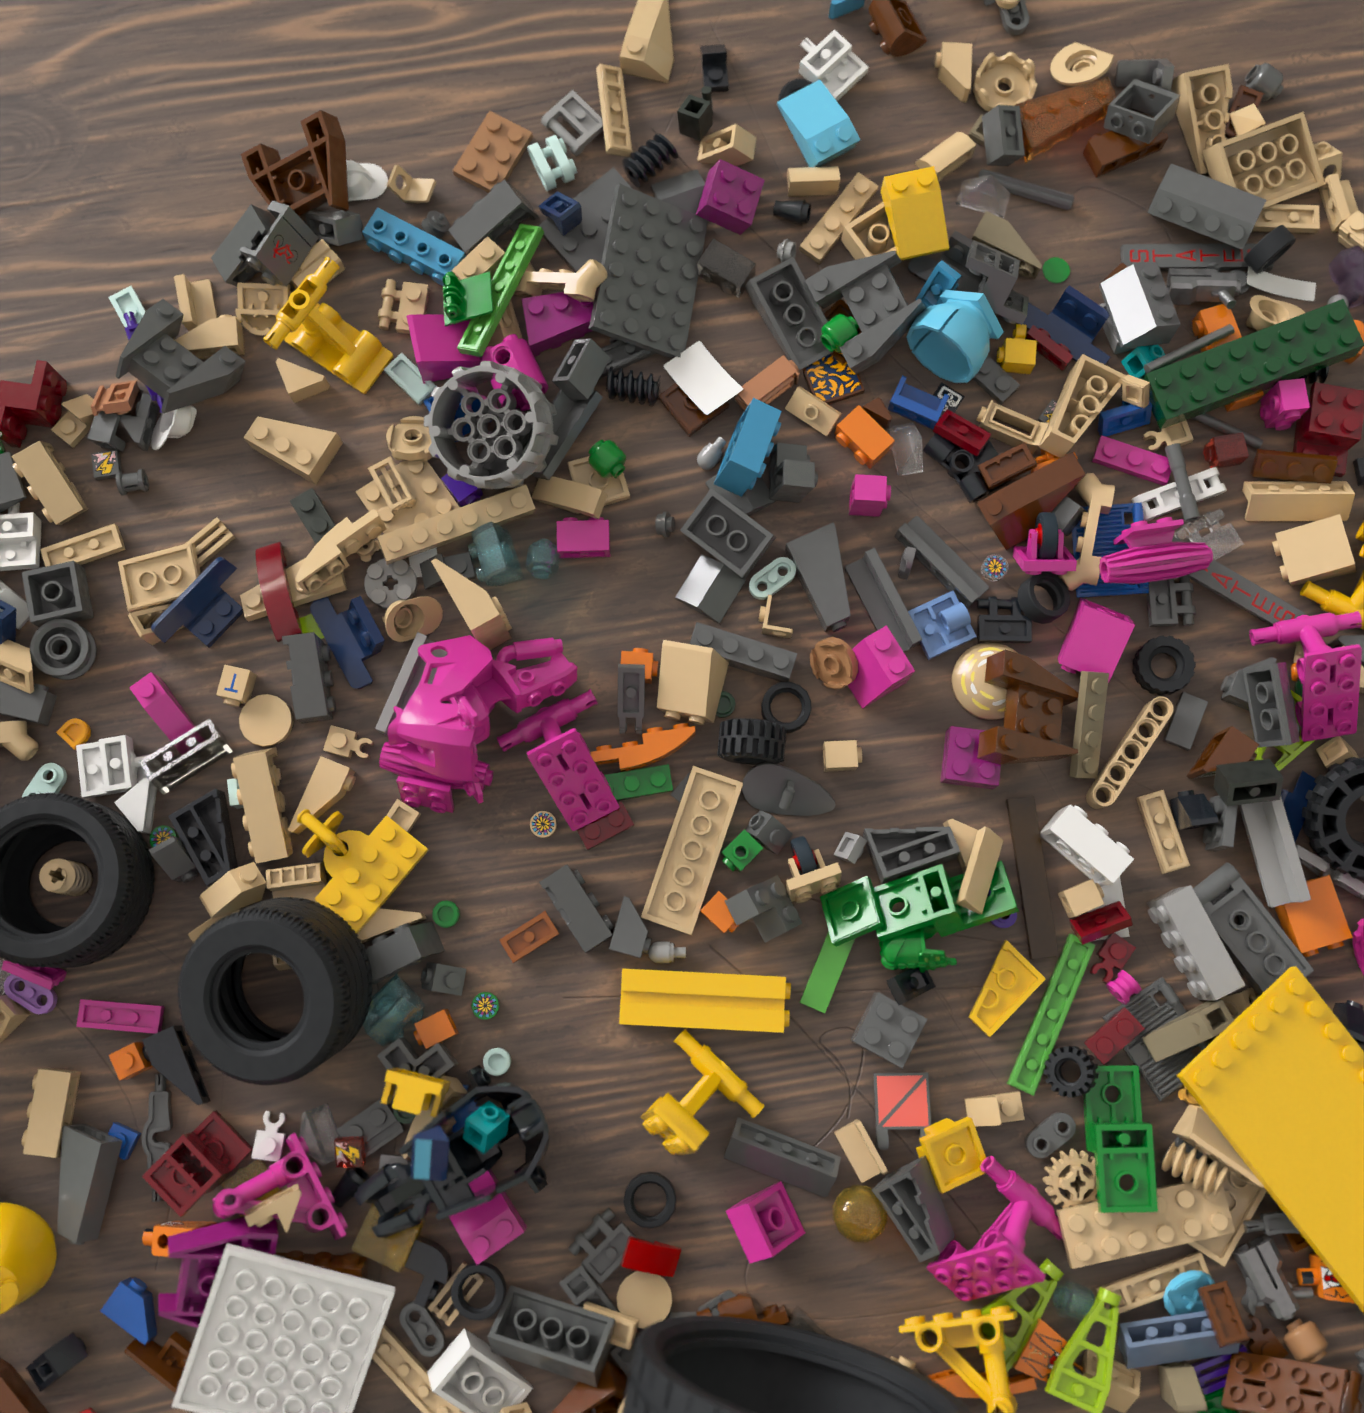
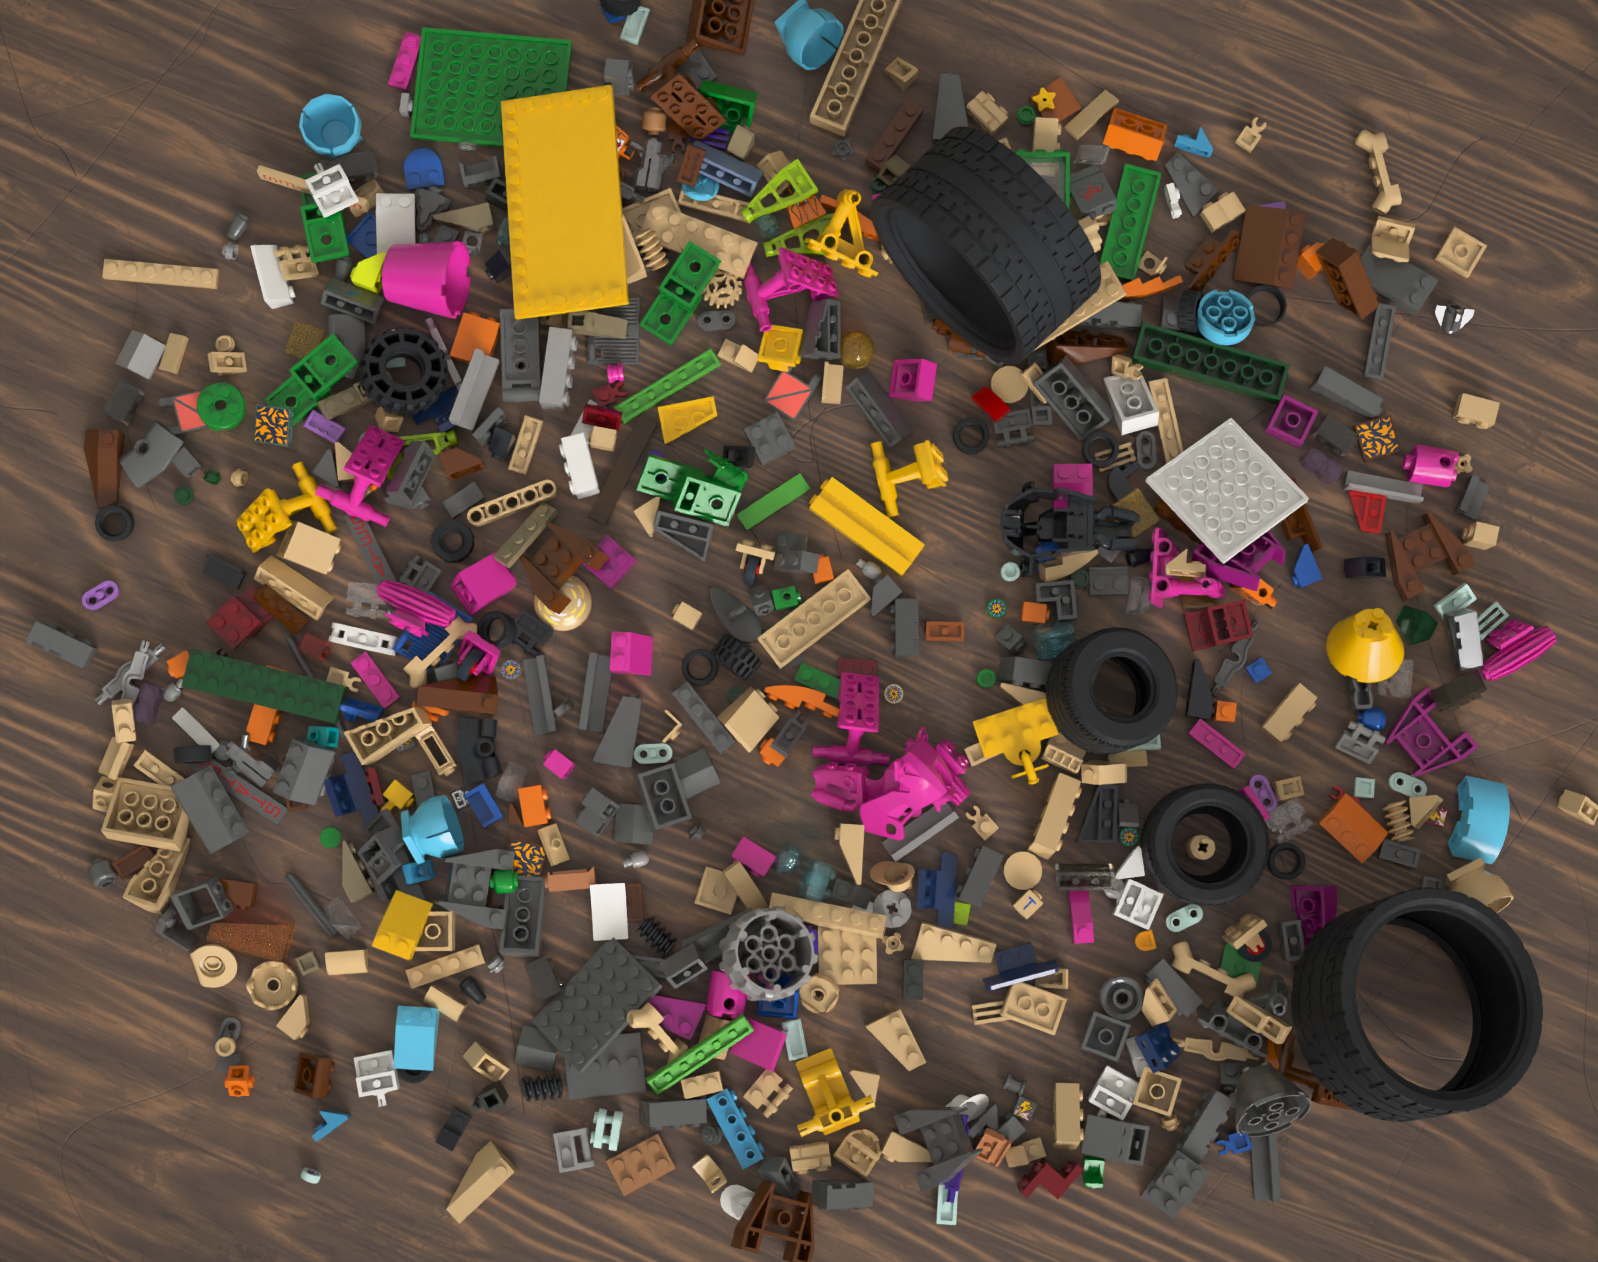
camera: 150 degrees left, 5 degrees up
(85, 547) = (1072, 1059): tan plate -> none
(85, 1181) = (1289, 659): dark grey slope -> none
(195, 301) = (900, 1184): tan panel -> none
(232, 790) = (1068, 835): light aqua tile -> none
(269, 1143) = (1171, 612): white plate -> none
(276, 591) = (966, 948): dark red slope -> none
(282, 247) = (822, 1173): dark grey panel -> none
(324, 789) = (1010, 802): tan slope -> none
(329, 554) = (921, 945): tan slope -> none
(349, 1152) = (1127, 575): clear red tile -> none
(400, 503) = (850, 987): tan tile -> none
(414, 1091) = (1066, 580): yellow panel -> none
(430, 1155) = (1077, 534): dark blue slope -> none
(466, 297) = (726, 1060): hinge -> none
(486, 1127) = (1038, 533): teal brick -> none
(563, 211) = (625, 1087): dark blue slope -> none
(607, 459) = (705, 896): green head -> none
(614, 110) = (542, 1139): tan plate -> none
(730, 197) = (509, 1023): magenta brick -> none
(748, 448) = (614, 842): dark azure brick -> none
(834, 663) = (653, 673): medium nougat tile -> none
(850, 847) = (719, 557): light grey plate -> none
(851, 911) = (745, 519): green tile -> none
(942, 624) = (569, 655): medium blue plate -> none
(962, 432) = (472, 766): dark red plate -> none
(980, 870) = (654, 491): tan slope -> none
(1003, 135) = (302, 948): dark grey panel -> none
(1007, 466) = (459, 725): reddish brown plate -> none
(1055, 1077) = (670, 346): black tyre -> none
(1114, 1035) = (640, 350): dark red plate -> none
(1135, 391) = (346, 718): tan tile -> none
(1186, 497) = (354, 654): dark grey piece -> none
(1189, 348) = (293, 723): flat silver bar -> none
(1246, 119) = (136, 853): tan slope -> none
(1248, 782) = (463, 436): pearl dark grey brick -> none
(1269, 312) = (218, 712): tan piece -> none
(1284, 404) = (259, 649): dark pink brick -> none

